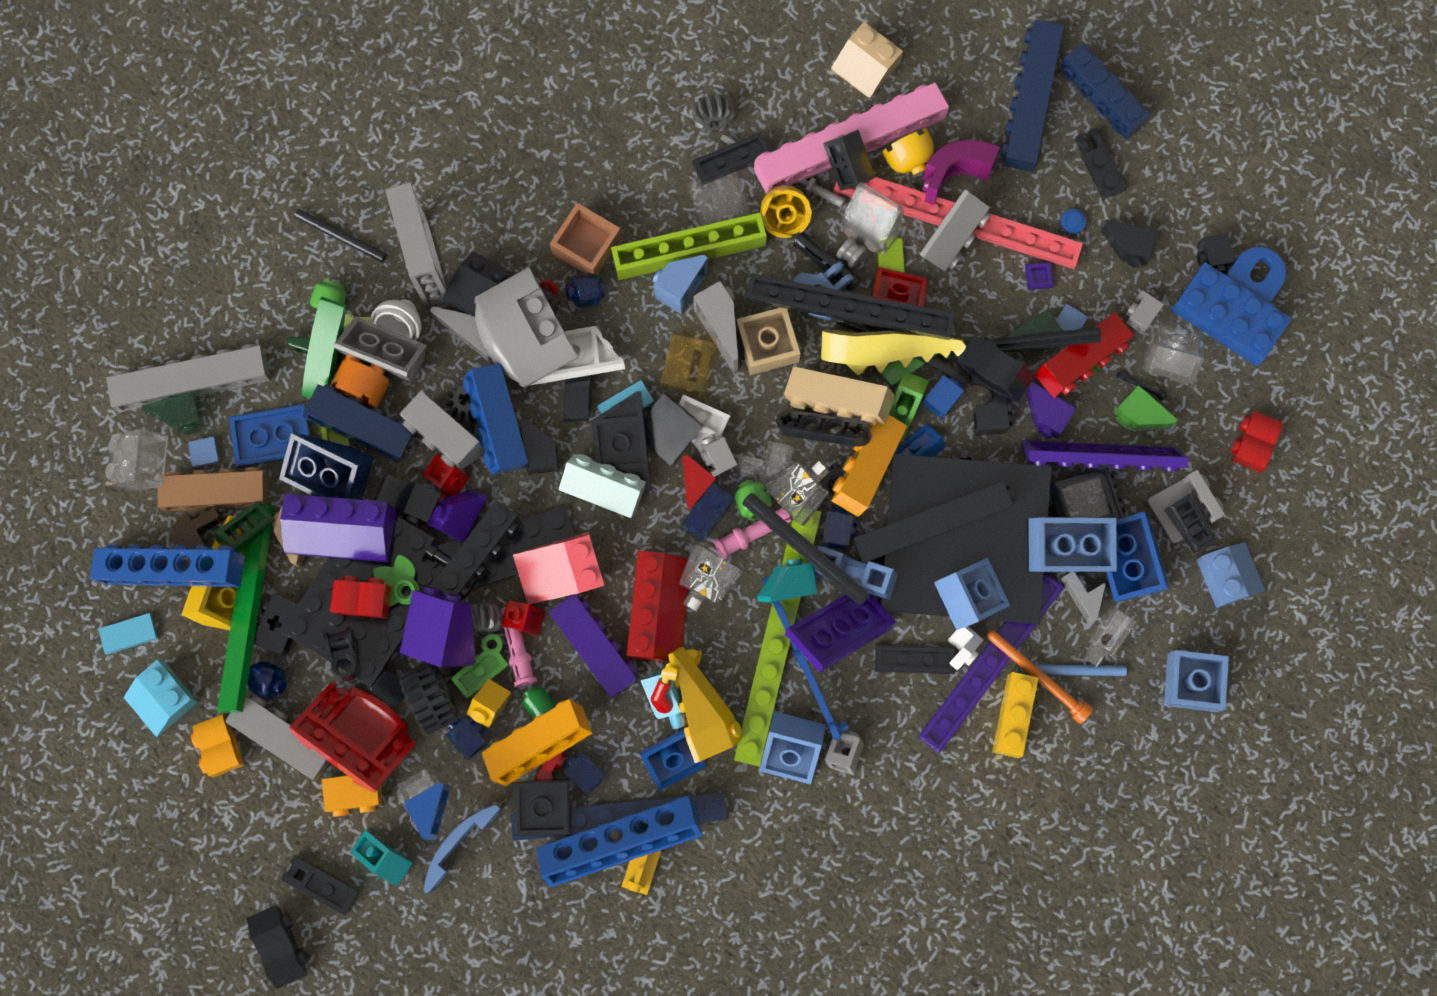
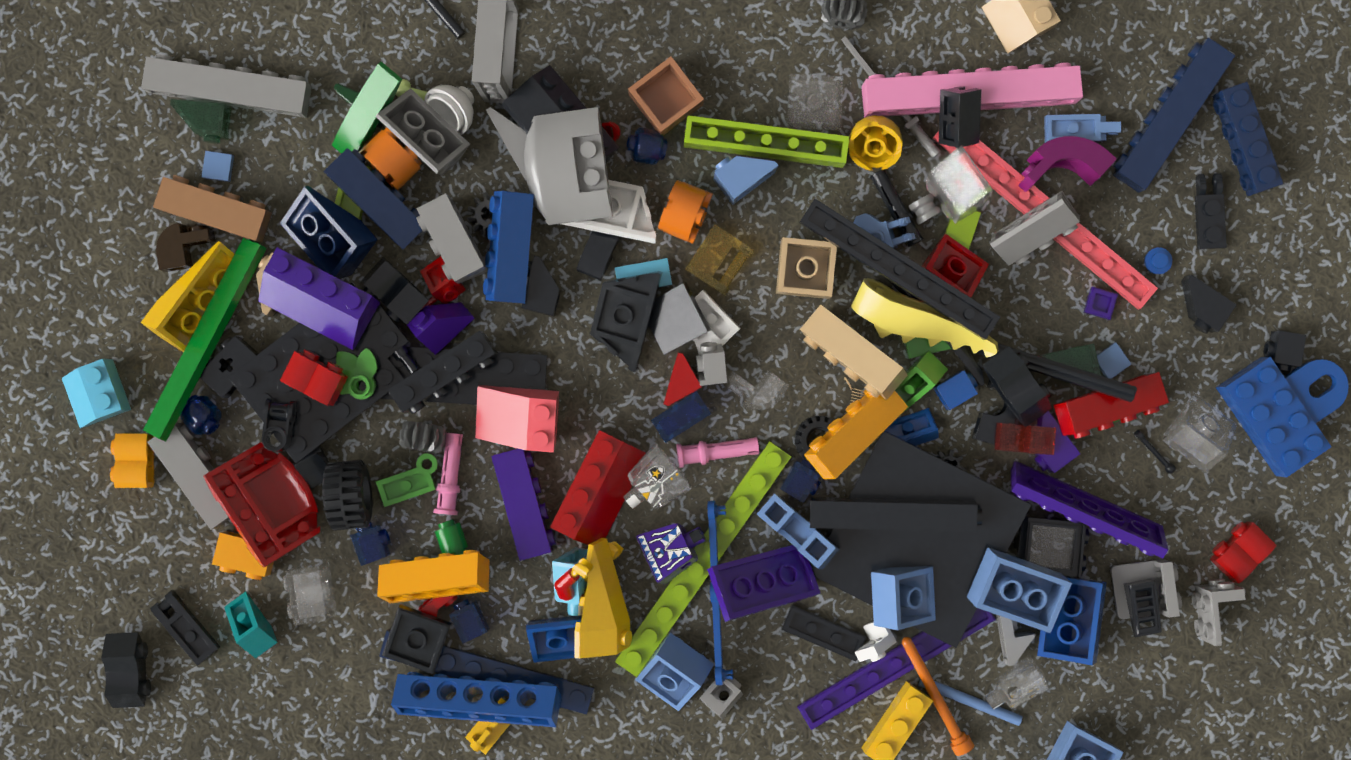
camera: 20 degrees right, 10 degrees up
(128, 633) = (86, 318): medium azure tile -> none
(136, 460) = (147, 153): clear brick -> none
(167, 566) = (142, 273): blue brick -> none
(242, 542) = (214, 257): dark green slope -> none
(265, 434) = (284, 171): blue tile -> none
(328, 290) = (393, 54): bright green head -> none
(428, 809) = (302, 611): blue slope -> none
(436, 871) = (299, 656): medium blue slope -> none
(439, 629) = (378, 437): dark purple slope -> none
(488, 703) = (402, 520): yellow brick -> none
(523, 618) = (465, 450): red bracket -> none
(602, 485) = (589, 350): light aqua brick -> none
(641, 331) = (685, 211): none -> orange brick
(716, 312) = (767, 223): light grey slope -> none
(729, 159) = (842, 65): black tile -> none
(745, 489) = (729, 421): bright green head -> none
(745, 635) = (670, 550): none -> torso
(789, 582) = (731, 518): teal slope -> none
(799, 490) = (777, 431): clear torso -> none
(806, 549) = (760, 494): black axle -> none
(821, 432) = (827, 376): black beam -> none
(910, 153) = (1025, 131): yellow cylinder -> none
(962, 130) = (1081, 125): none -> medium blue hinge
(1022, 413) = (1027, 440): none -> clear red slope
(1142, 312) = (1186, 382): light grey brick -> none
(1143, 412) = (1143, 479): bright green slope -> none
(1230, 574) = (1160, 671): medium blue slope -> none
(1244, 497) = (1206, 603): none -> light grey bracket

